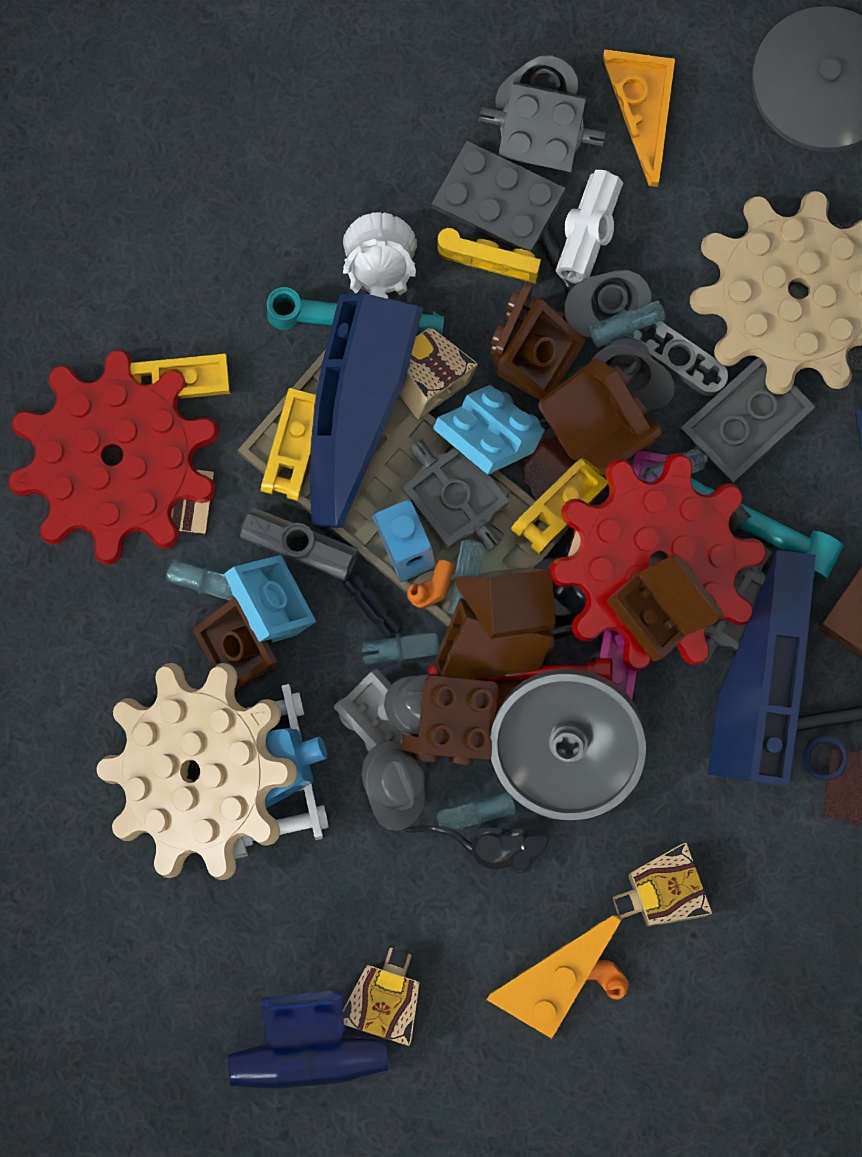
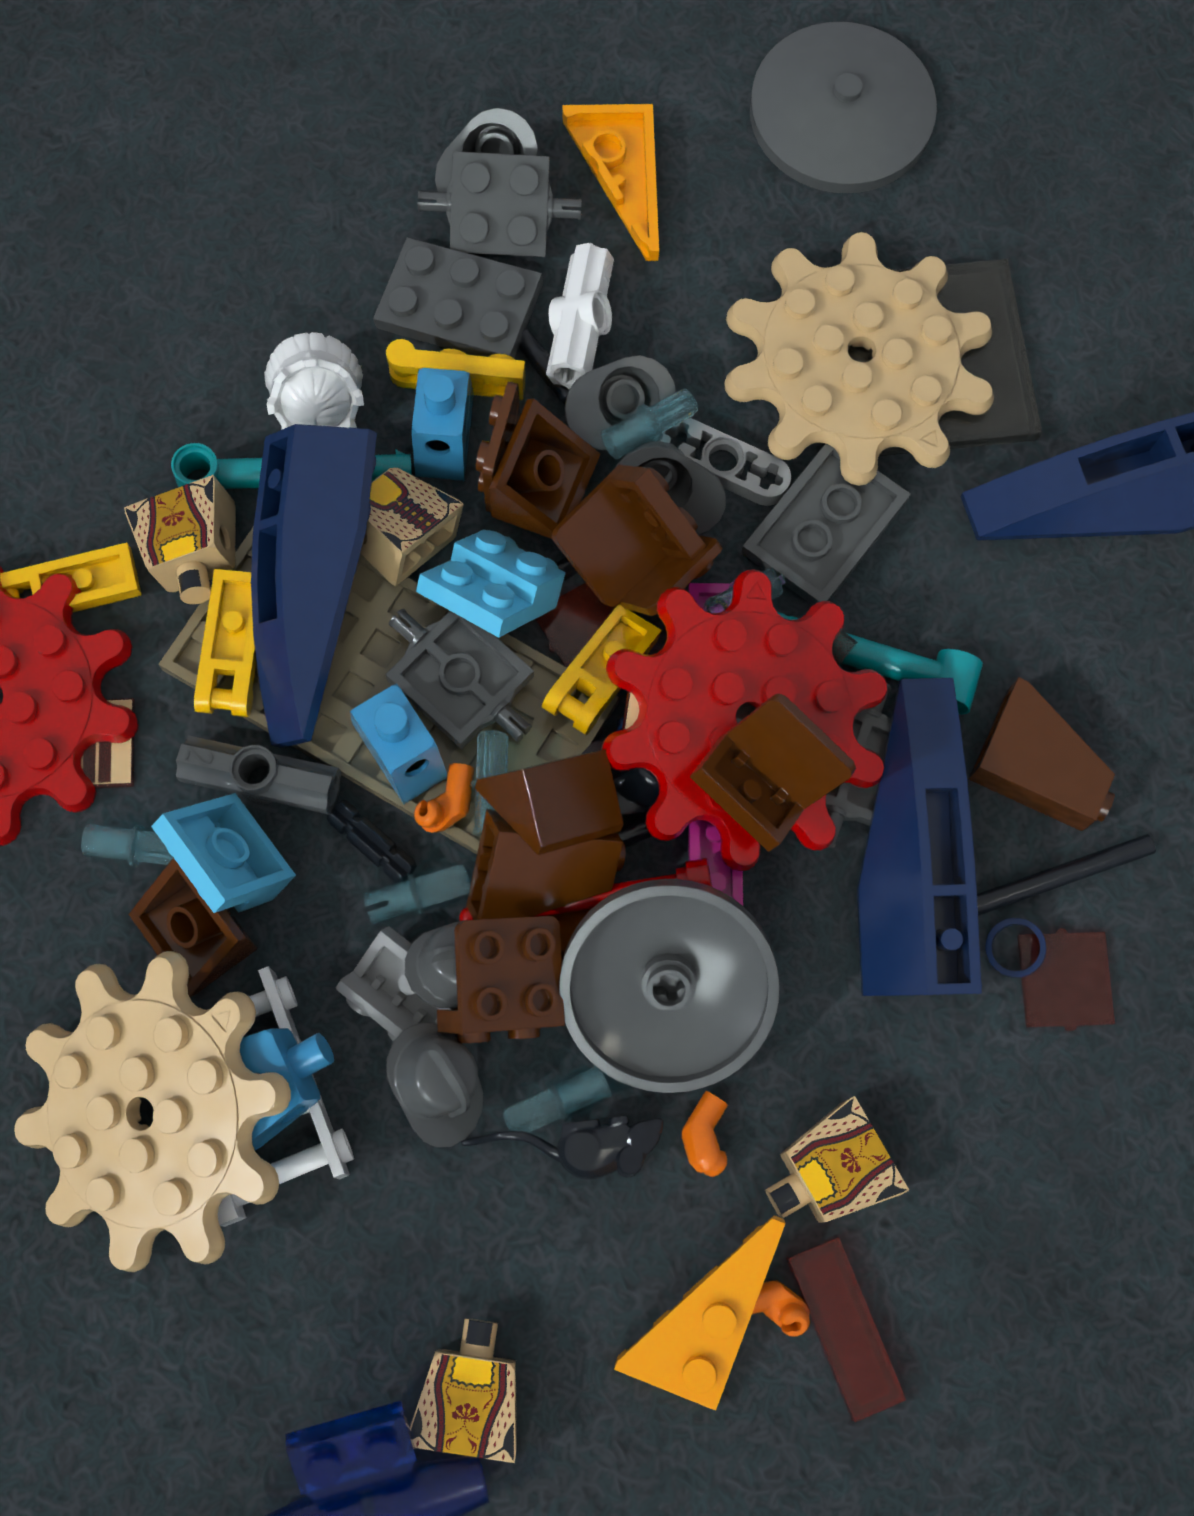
camera: 15 degrees left, 5 degrees down
(270, 358) = (186, 536): none -> torso
(471, 297) = (442, 414): none -> dark azure torso
(573, 853) = (700, 1139): none -> orange arm
(652, 1000) = (846, 1329): none -> clear red tile

